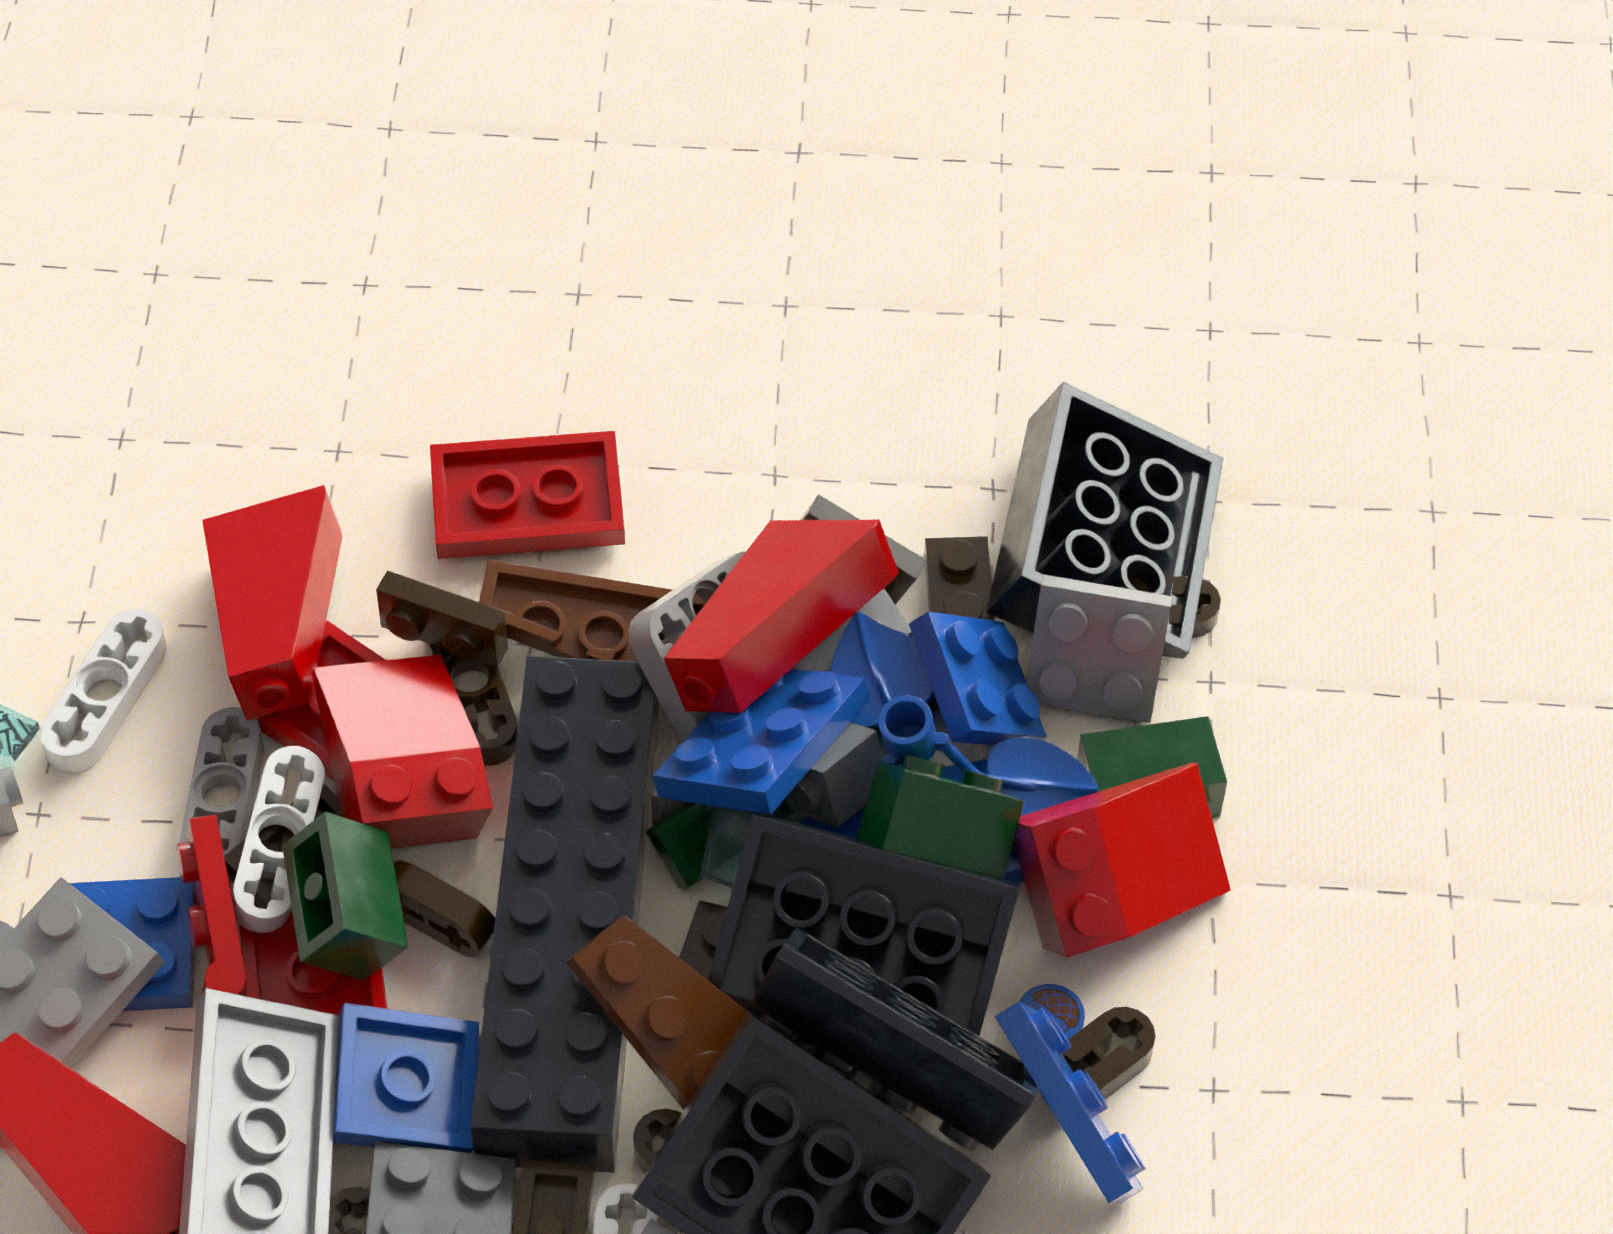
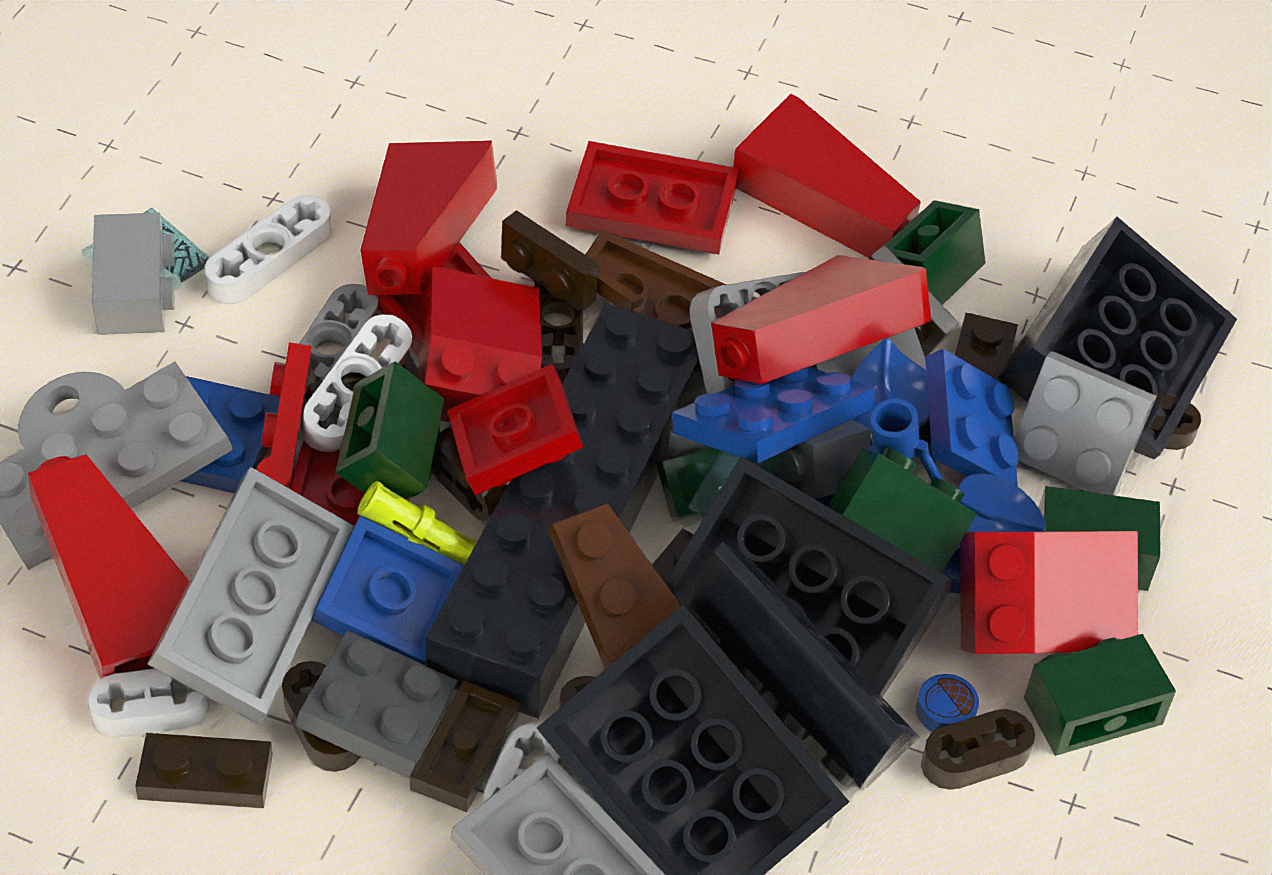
camera: 15 degrees right, 5 degrees down
(405, 991) = (414, 523): none -> neon yellow pin
(483, 849) = (514, 429): none -> red plate
(718, 419) = (822, 179): none -> red slope
(875, 470) = (946, 243): none -> dark green brick
(1073, 1101) = (941, 764): blue plate -> none
(1206, 958) = (1098, 693): none -> dark green brick

